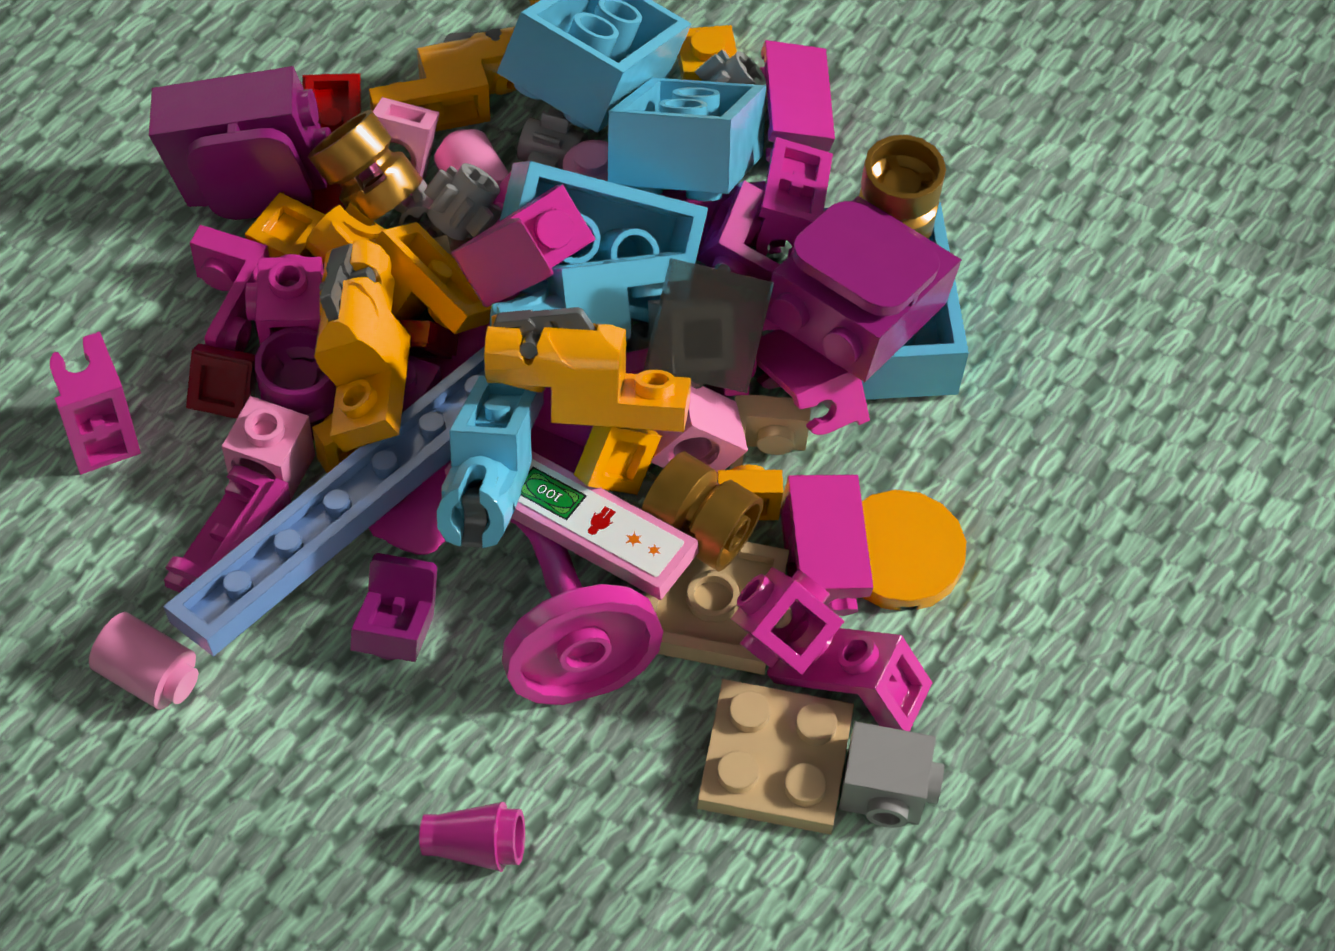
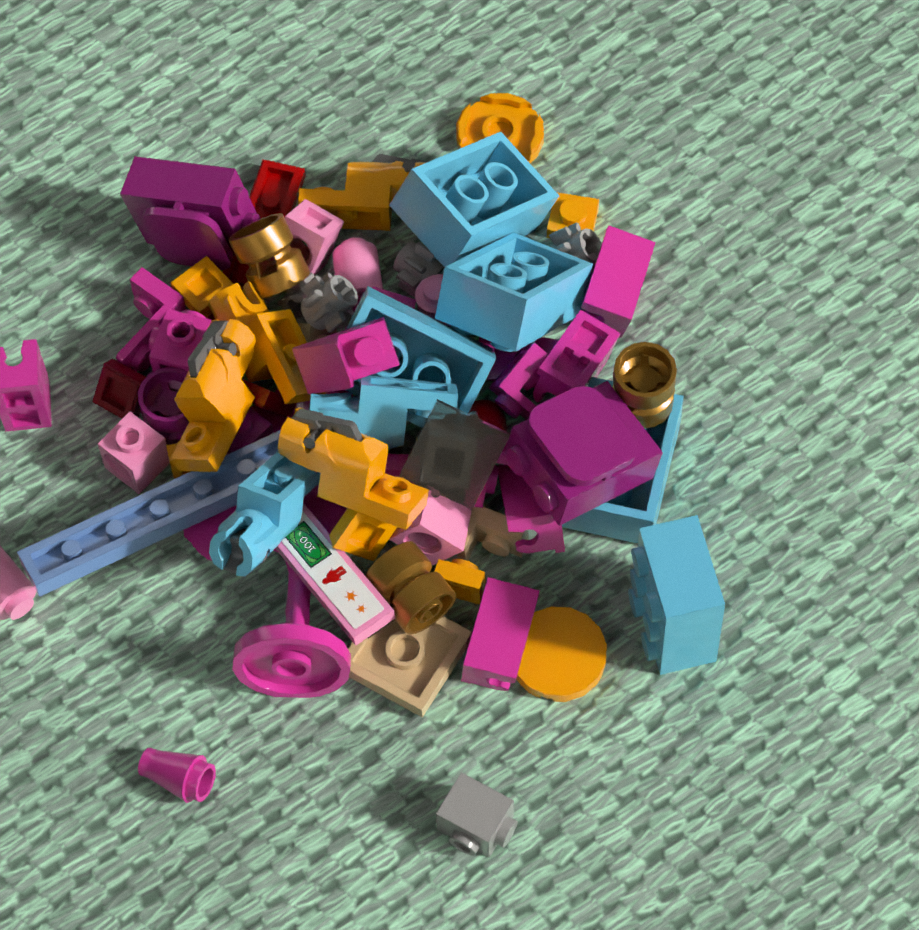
camera: 25 degrees right, 5 degrees up
(245, 507) = (100, 494): dark pink hinge -> none
(395, 608) = (181, 596): magenta bracket -> none
(776, 756) = (405, 778): tan plate -> none
(805, 625) = (437, 700): dark pink brick -> none
(871, 665) = (487, 733): dark pink bracket -> none
(1040, 427) = (676, 595): none -> medium azure brick

